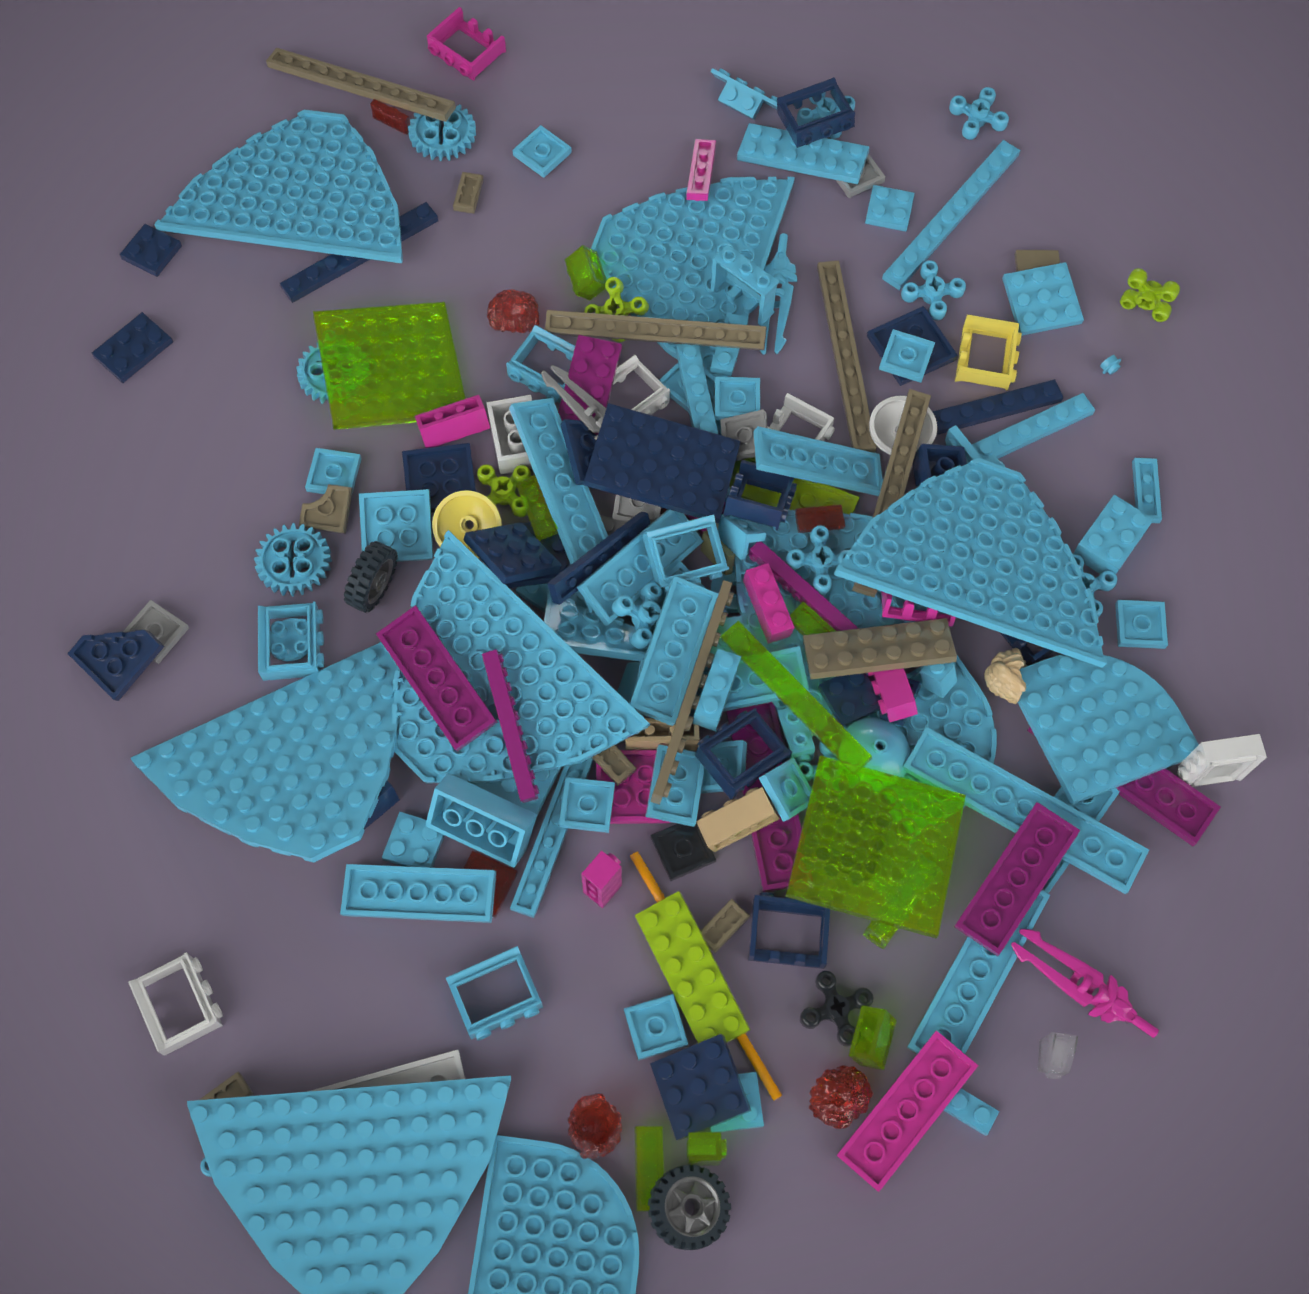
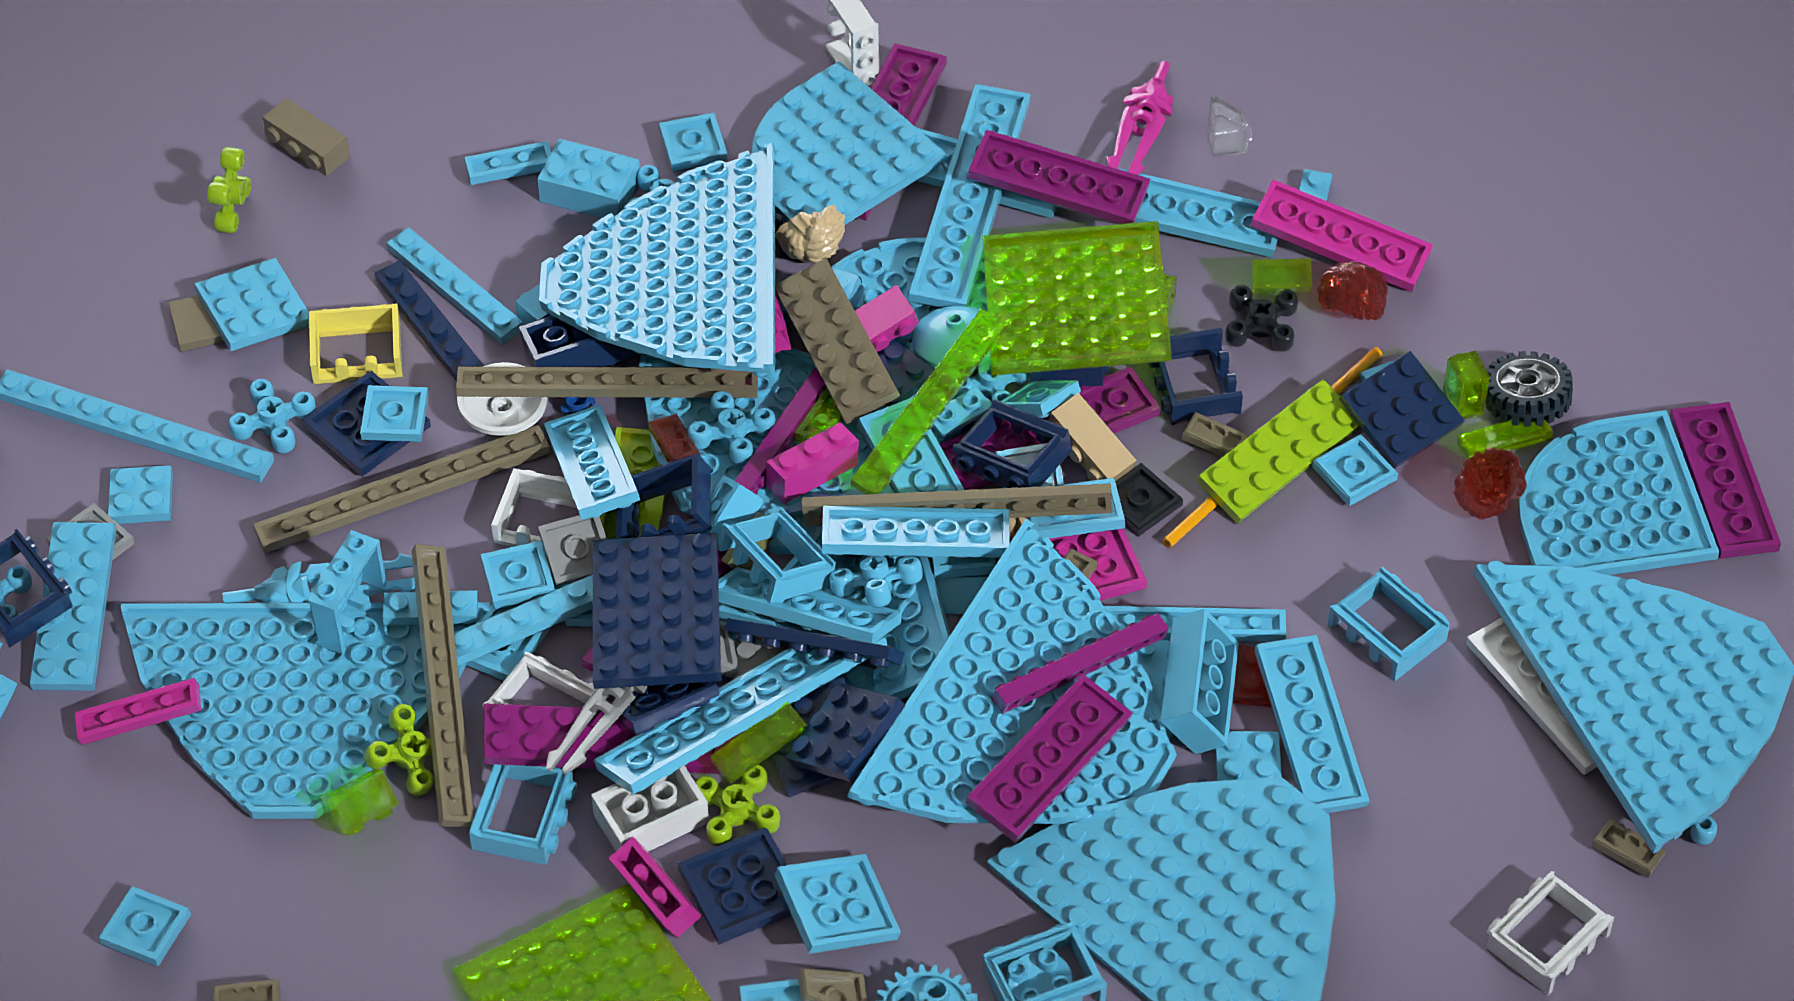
camera: 105 degrees left, 15 degrees down
(370, 576) = (930, 889): black wheel -> none
(458, 509) = (808, 819): light yellow dish -> none
(513, 311) = (450, 873): clear red hair -> none
(587, 804) = (1134, 586): medium azure plate -> none
(602, 878) = (1221, 537): dark pink brick -> none
(716, 690) = (948, 473): medium azure brick -> none
(956, 438) = (508, 341): medium azure plate -> none
(1110, 365) = (335, 223): medium azure plate -> none
(1201, 361) = (306, 137): none -> dark tan brick

